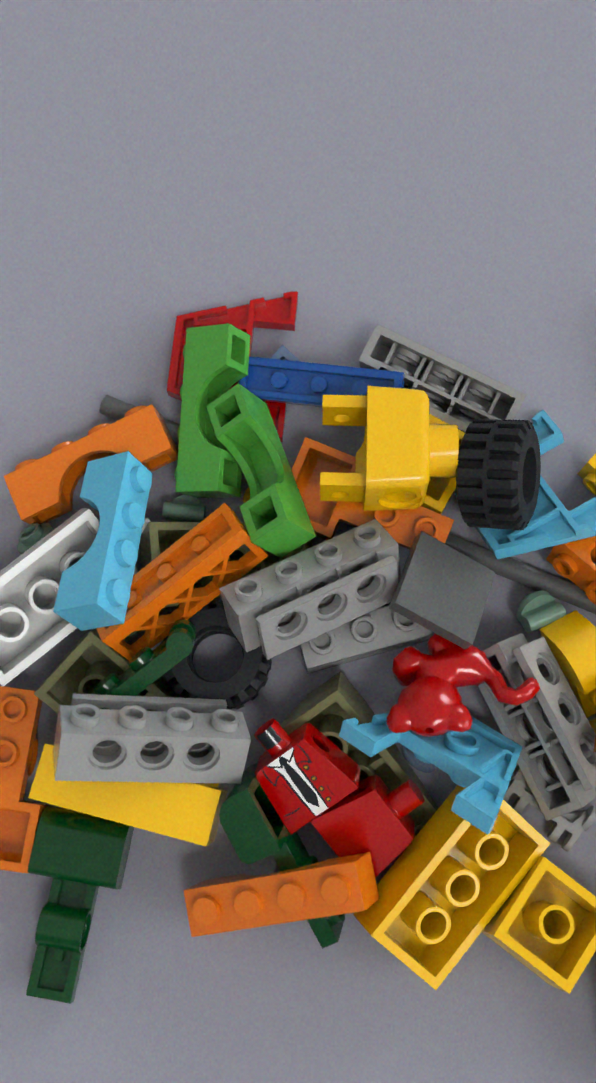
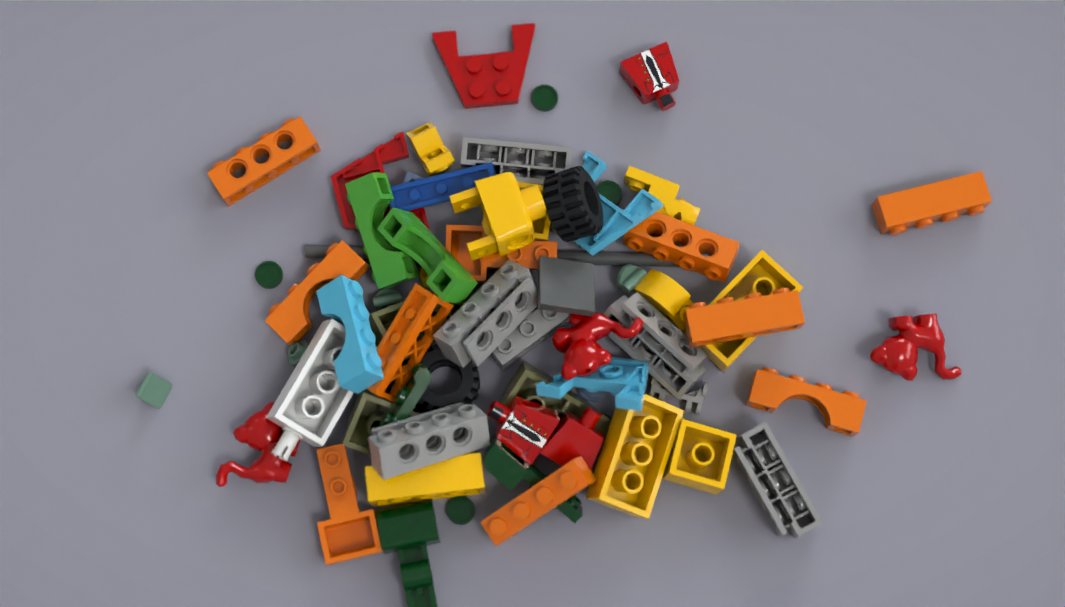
camera: 25 degrees left, 0 degrees up
(43, 418) = (269, 274): none -> dark green piece
(85, 280) = (257, 174): none -> orange brick
(167, 855) = (460, 510): none -> dark green piece
(326, 328) = (430, 149): none -> yellow brick
(444, 263) = (491, 77): none -> red wing
(510, 318) = (544, 98): none -> dark green piece
(556, 477) = (610, 191): none -> dark green piece

